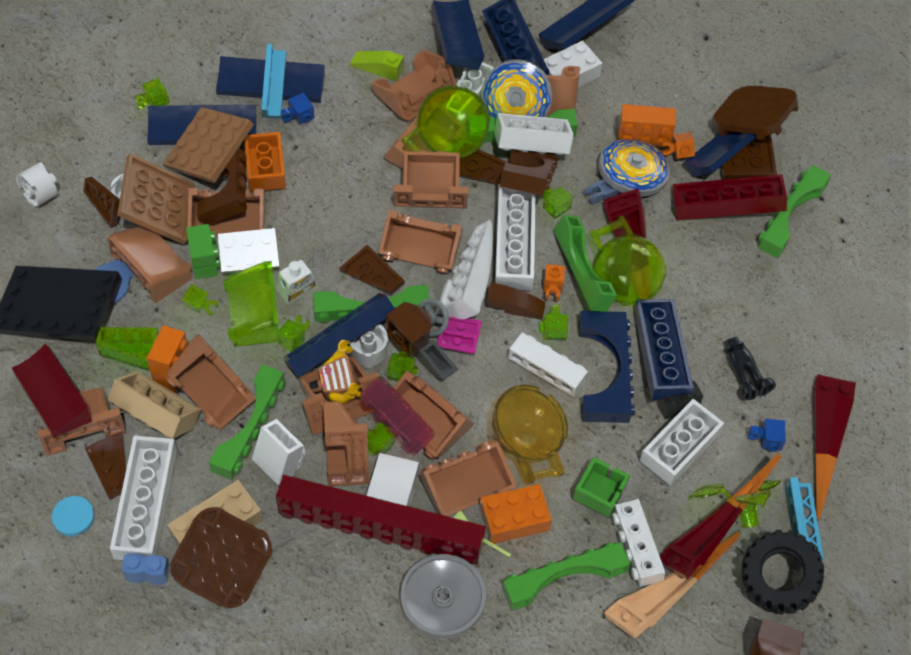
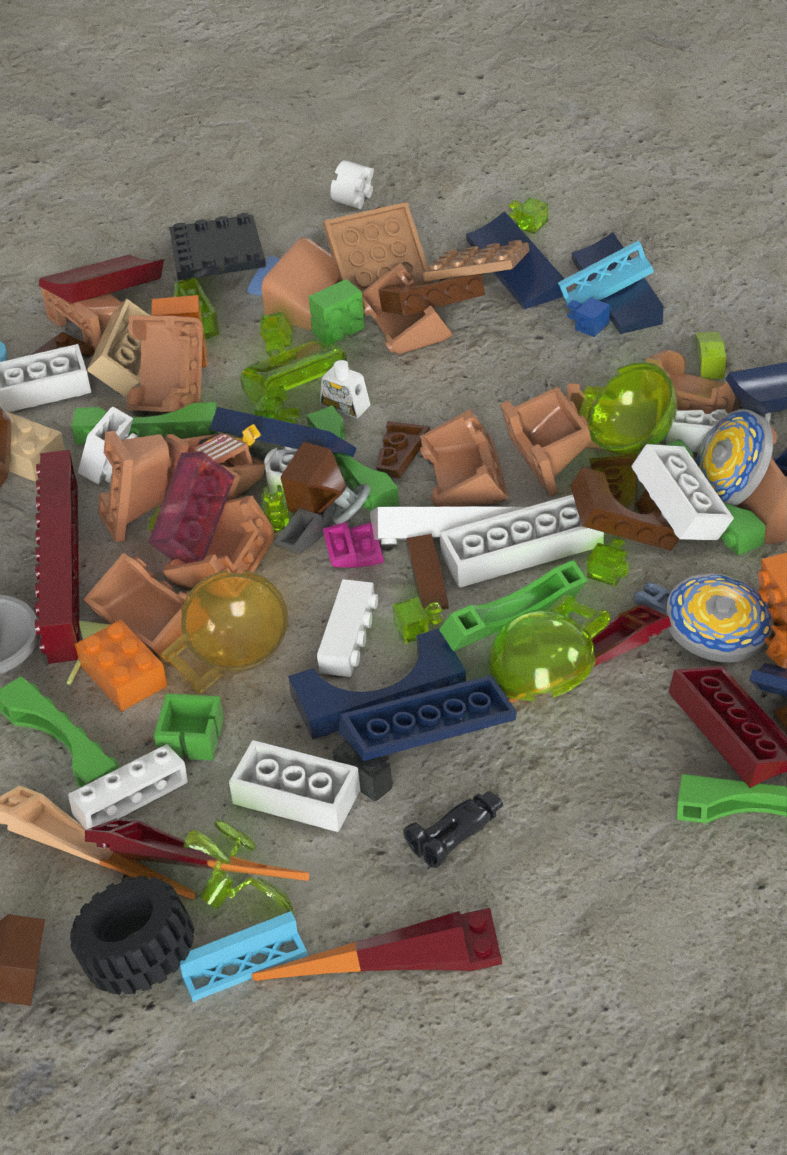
camera: 75 degrees right, 15 degrees down
(247, 249) = (361, 340): white brick -> none
(265, 161) = (491, 314): orange brick -> none
(393, 479) = (104, 543): white brick -> none
(553, 280) = (479, 591): orange brick -> none
(771, 434) = (359, 881): blue brick -> none

